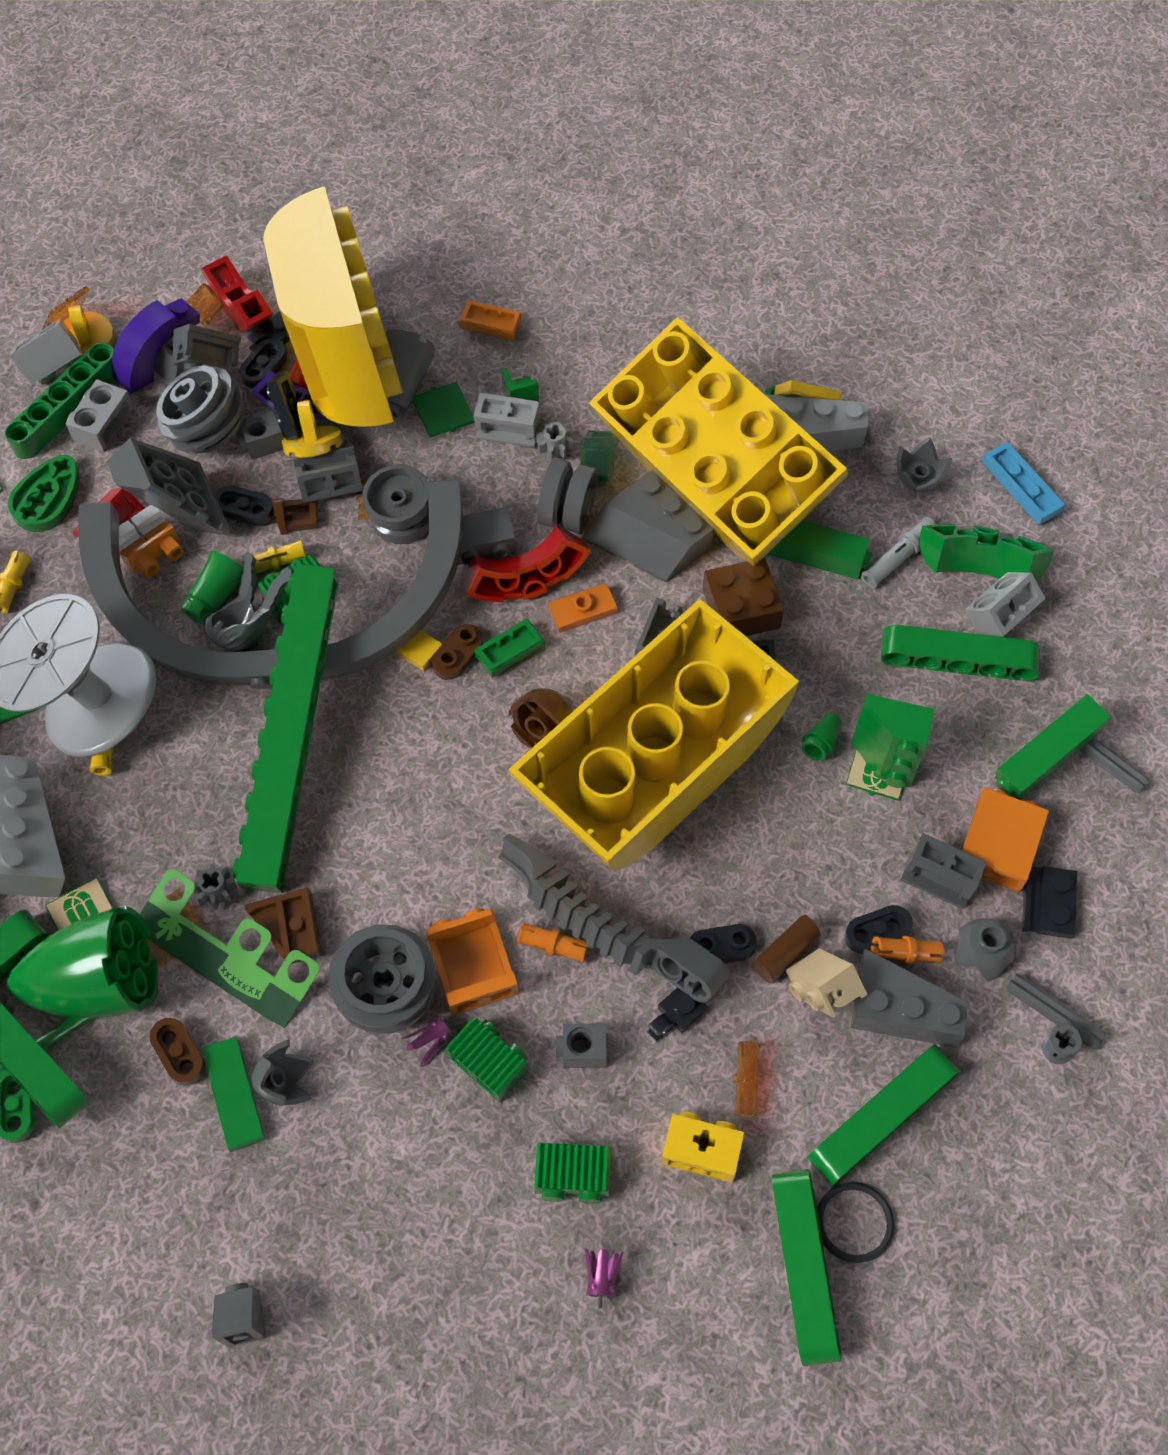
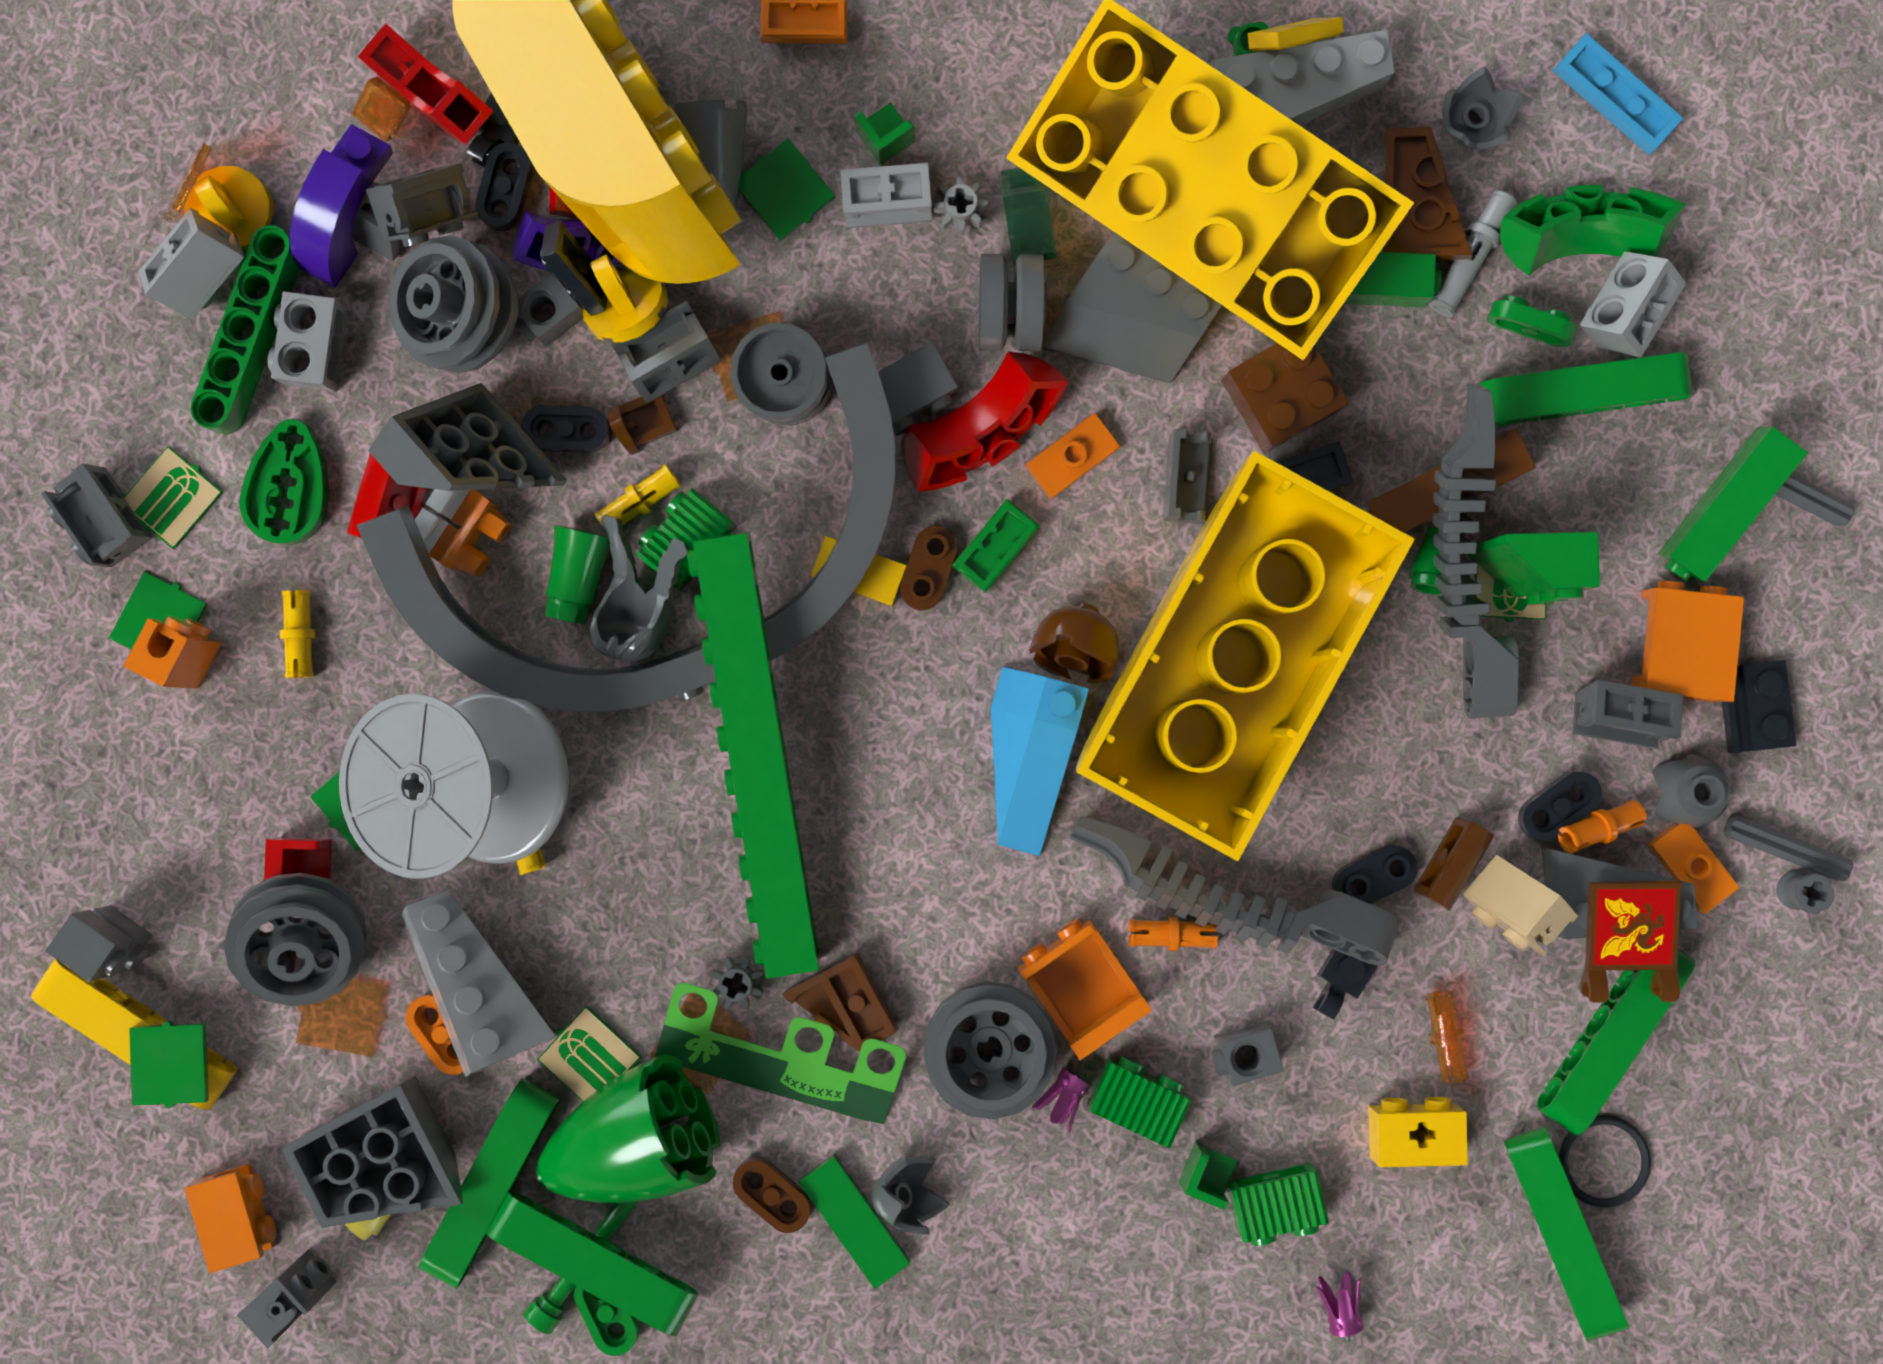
camera: 20 degrees left, 25 degrees up
(486, 791) = (1032, 742): none -> dark azure wedge
(523, 1131) = (1207, 1175): none -> green panel
(846, 804) = (1488, 661): none -> dark grey piece
(847, 681) = (1413, 501): none -> reddish brown slope
(870, 508) = (1418, 173): none -> reddish brown wing
(909, 1018) = (1632, 929): none -> flag
(931, 601) = (1517, 317): none -> green plate
(983, 1015) = (1692, 861): none -> orange plate

